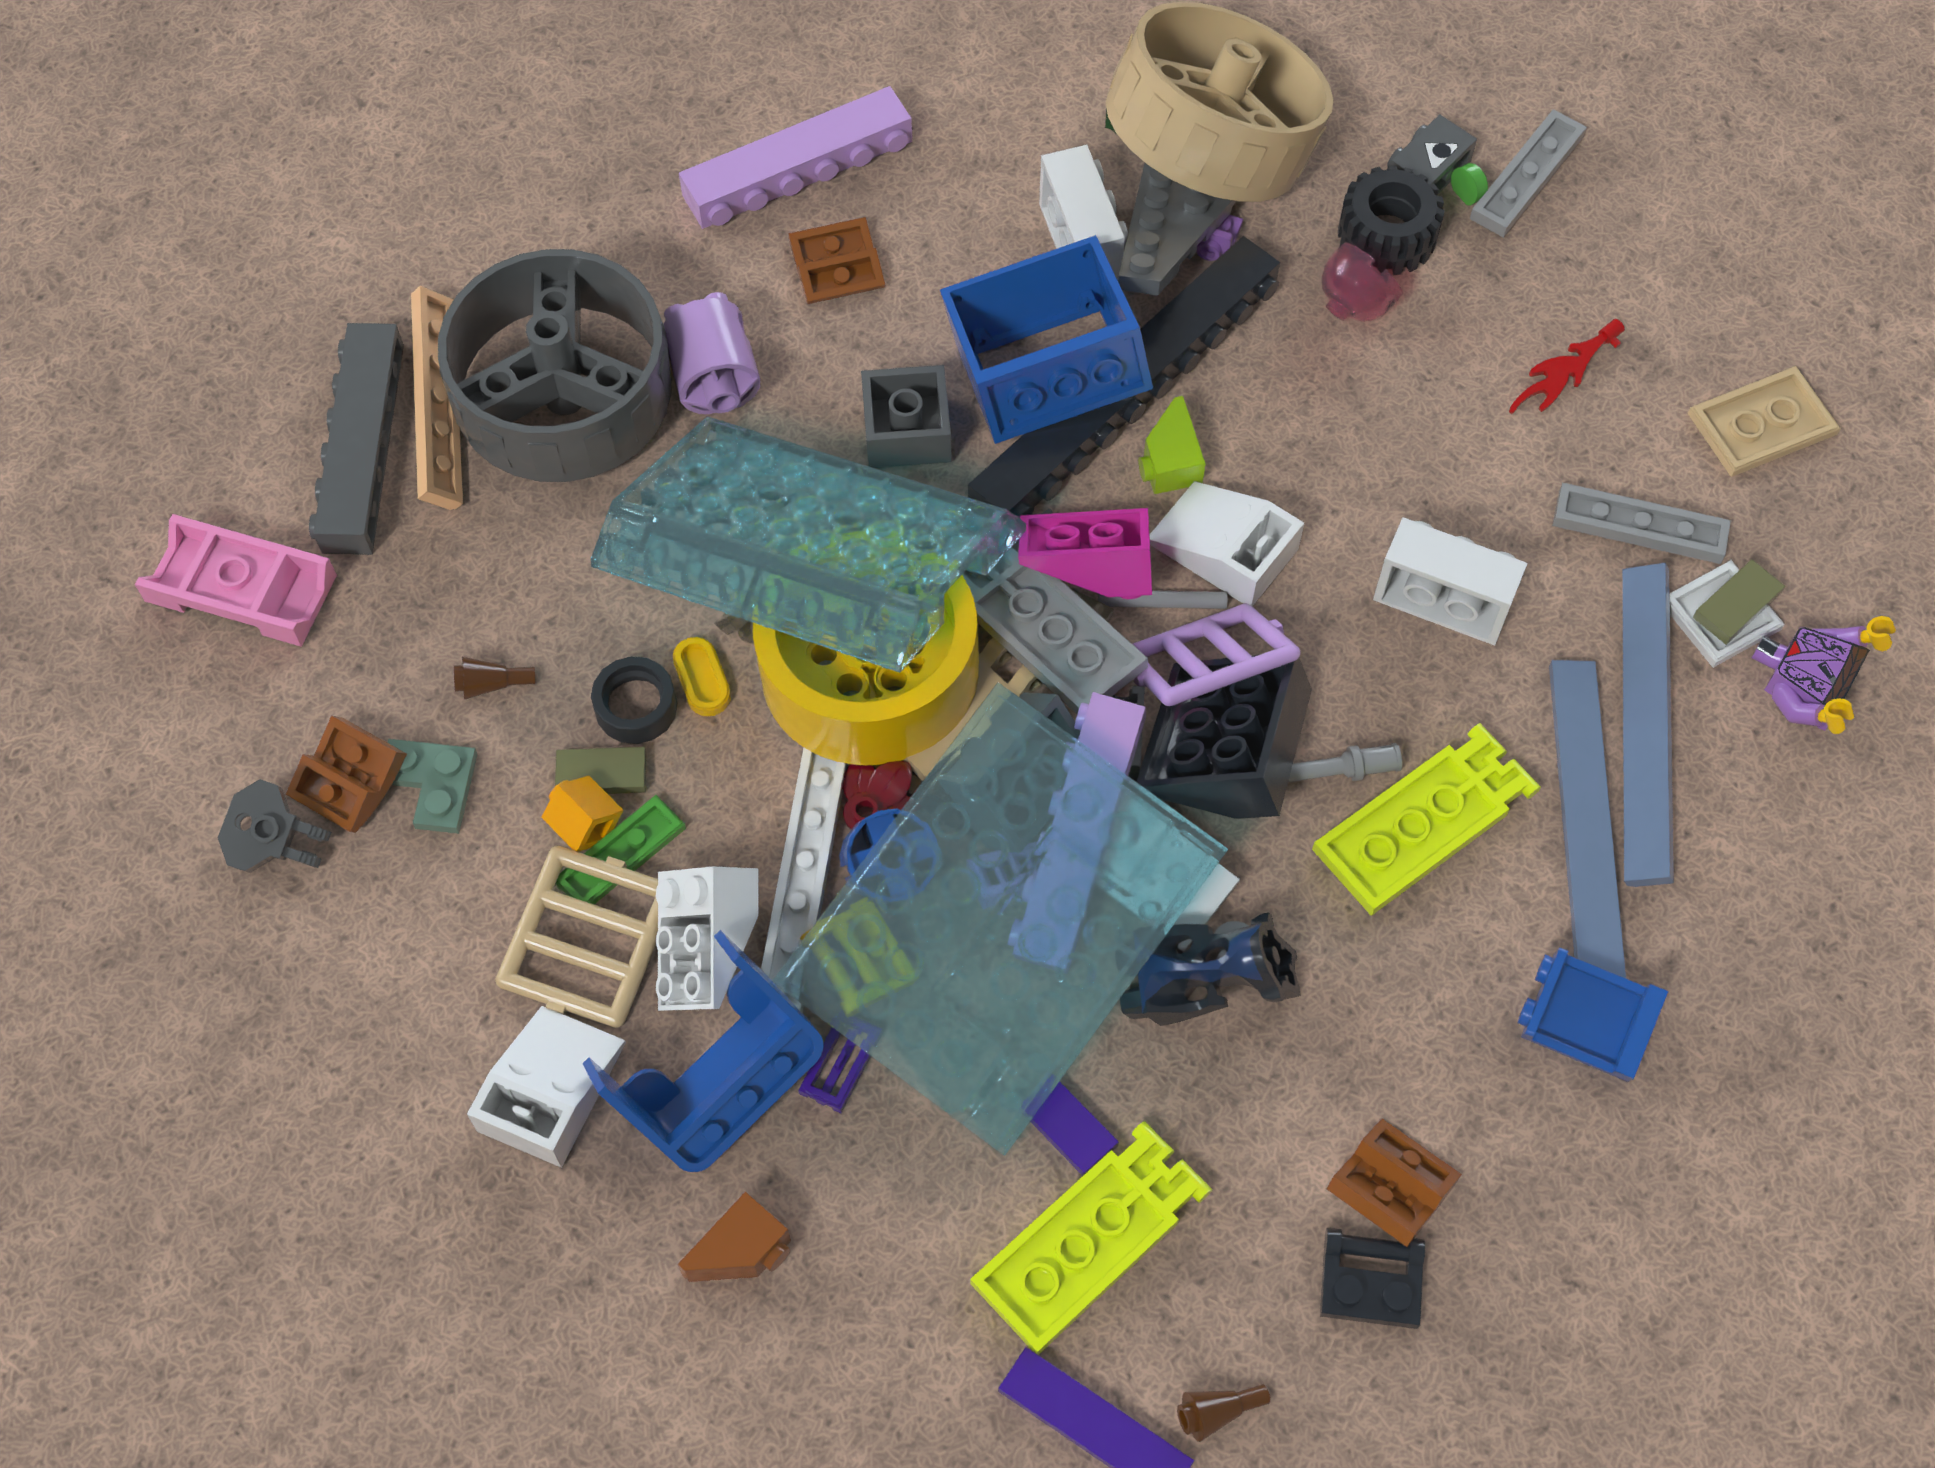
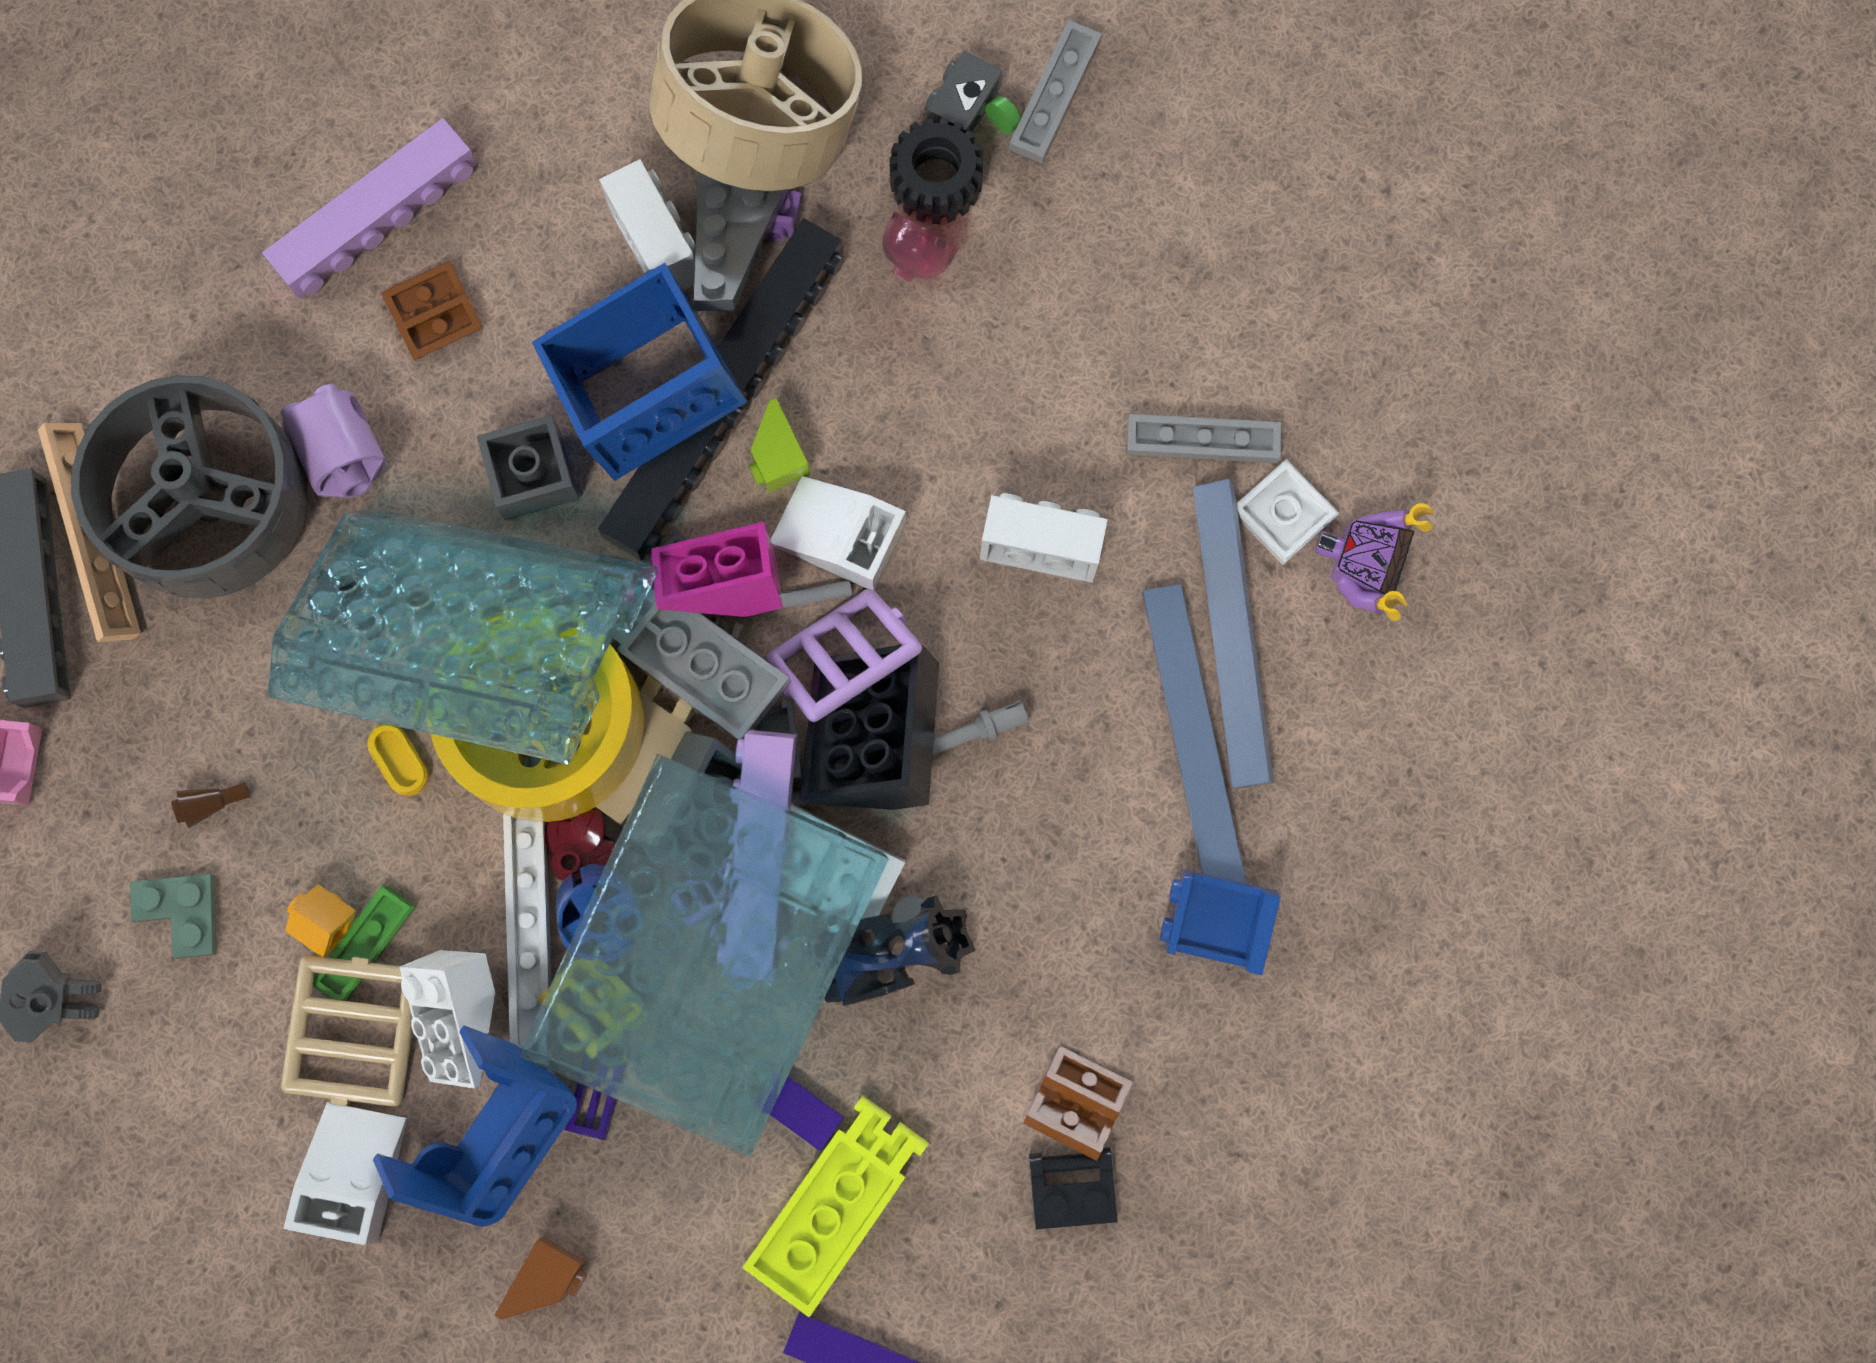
camera: 15 degrees left, 15 degrees up
(346, 774) = (100, 924): dark orange slope -> none
(611, 768) = (329, 868): olive tile -> none
(643, 728) = (318, 779): black tyre -> none
(1209, 1411) = (960, 1332): reddish brown cone -> none
(1423, 819) = (1055, 766): neon yellow hinge -> none
(1560, 368) = (1111, 293): red piece -> none
(1738, 601) = (1297, 502): olive tile -> none
(1763, 421) = (1298, 310): tan tile -> none

